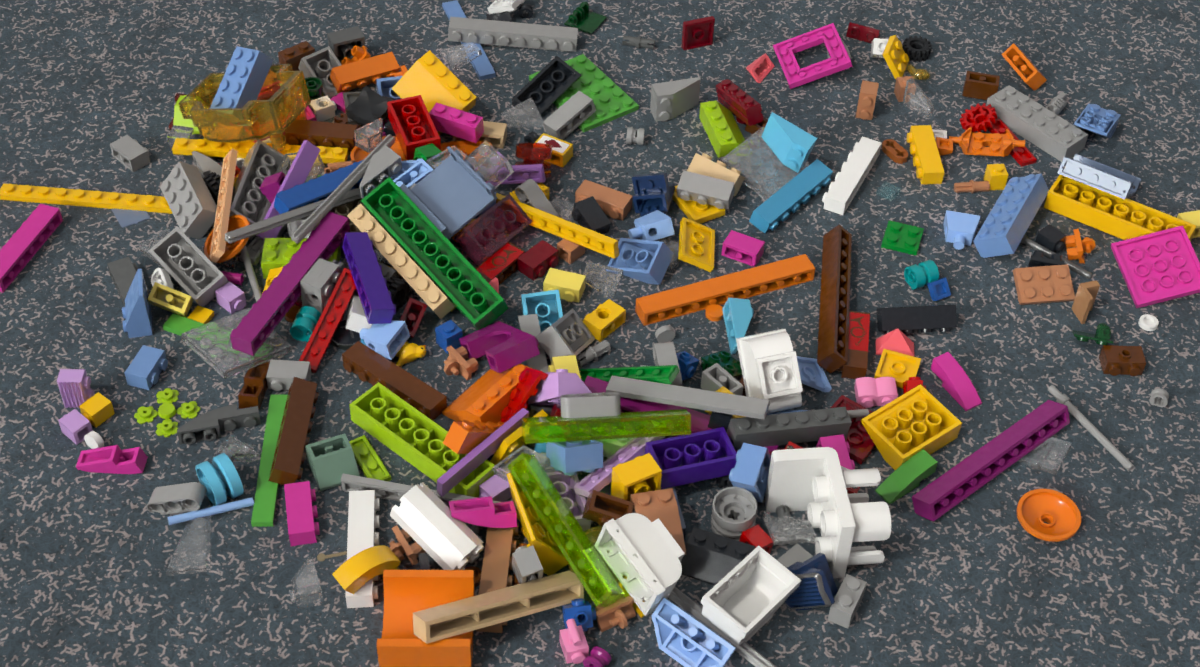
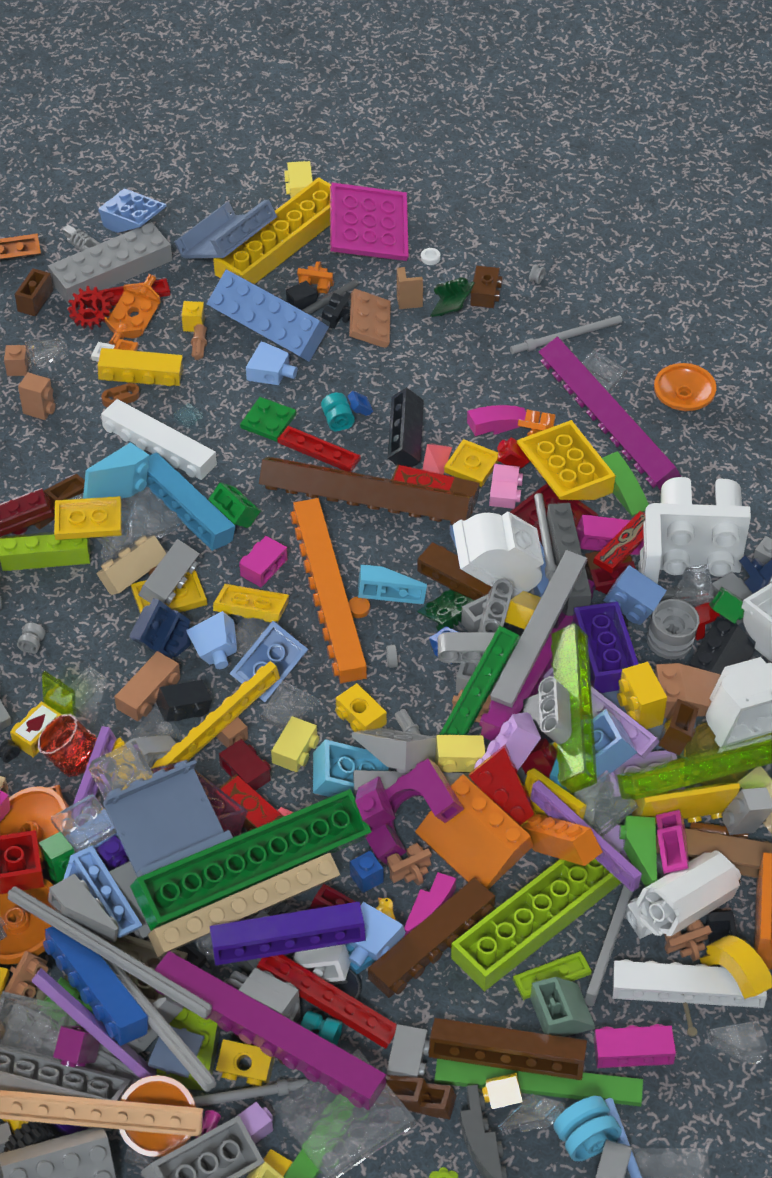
camera: 80 degrees left, 5 degrees up
(256, 430) = (502, 1091): none -> brick
(277, 242) = (165, 1060): none -> sand blue piece
(424, 372) = (428, 902): none -> dark pink slope
(485, 487) = (640, 845): none -> bright green slope
(497, 319) = (374, 804): none -> magenta slope
(569, 146) = (58, 695): none -> clear neon green piece
(591, 170) = (89, 693): none -> clear wing
(719, 374) = (497, 602): none -> light grey beam
(742, 135) = (88, 518): none -> yellow plate
(768, 542) = (728, 605): none -> green brick
(794, 223) = (234, 505): none -> green brick
(880, 272) = (319, 449): none -> red tile
(957, 405) = (532, 421): none -> orange hips

